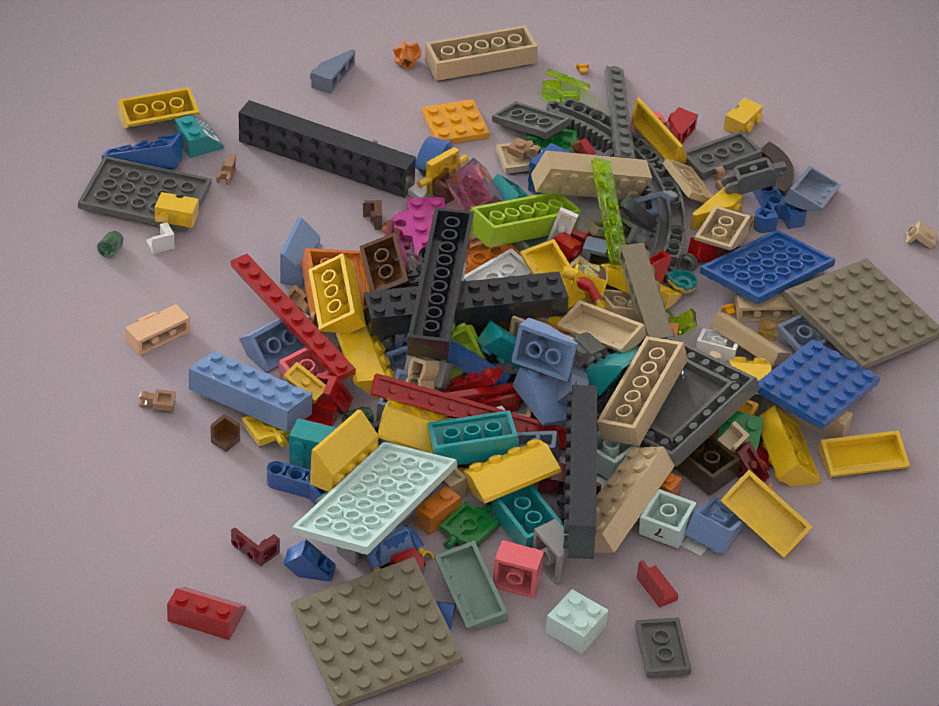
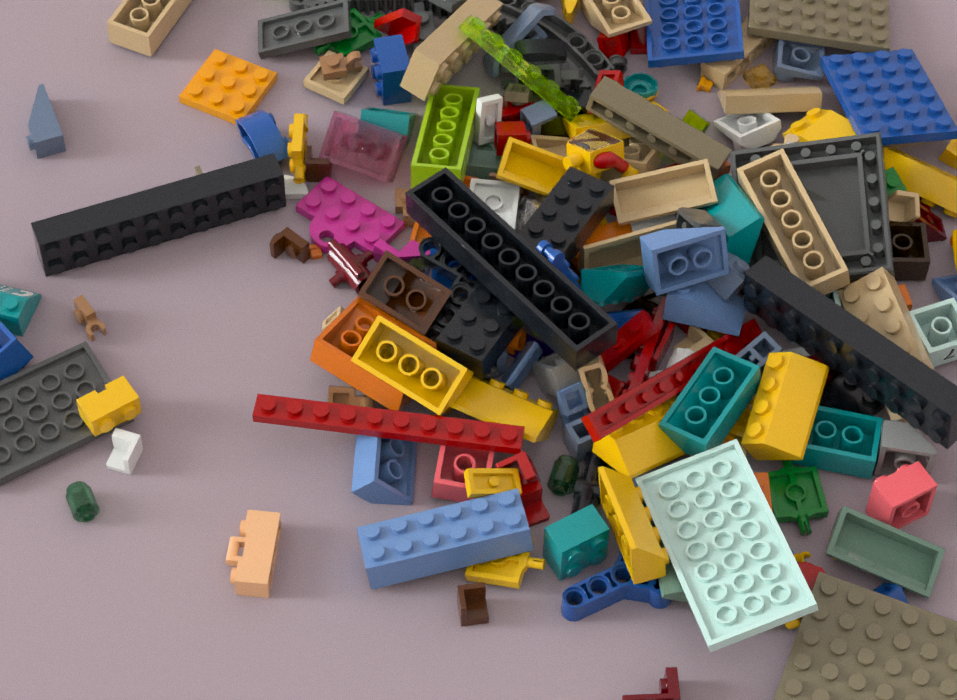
camera: 45 degrees left, 10 degrees up
(160, 400) = (364, 626): medium nougat plate -> none
(300, 238) = (286, 351): medium blue slope -> none
(309, 562) = (723, 666): blue slope -> none
(407, 54) = (92, 50): orange piece -> none
(471, 306) = (557, 258): none -> blue plate

